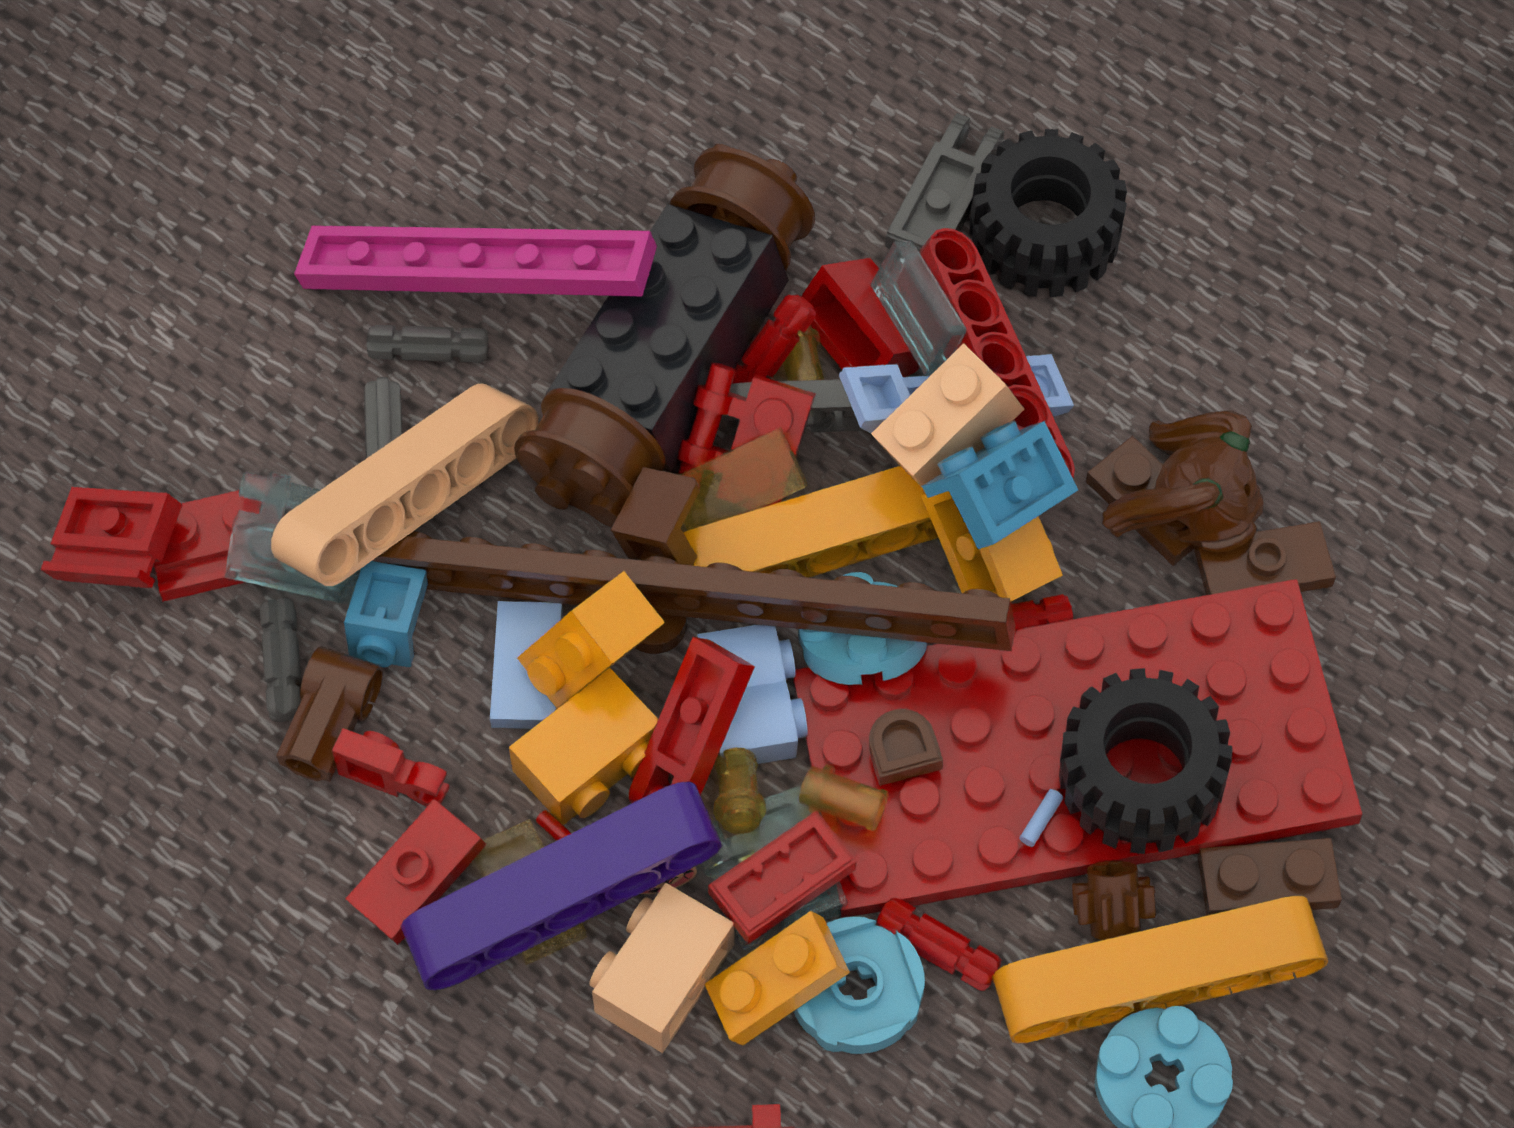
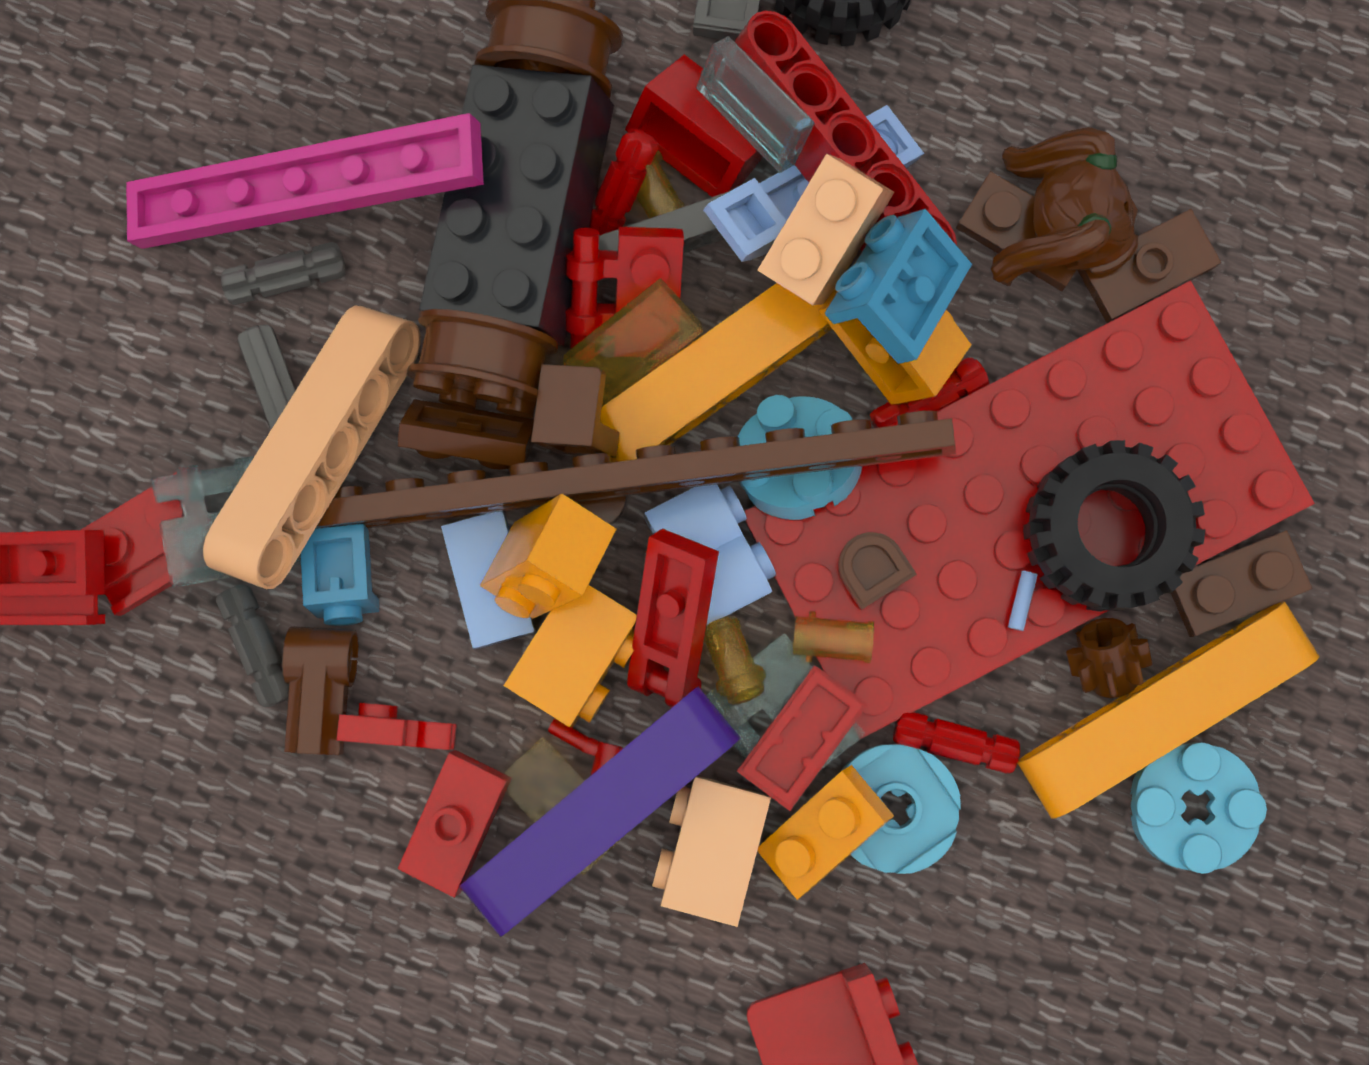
camera: 15 degrees left, 20 degrees up
(530, 517) = (462, 432): none -> reddish brown plate

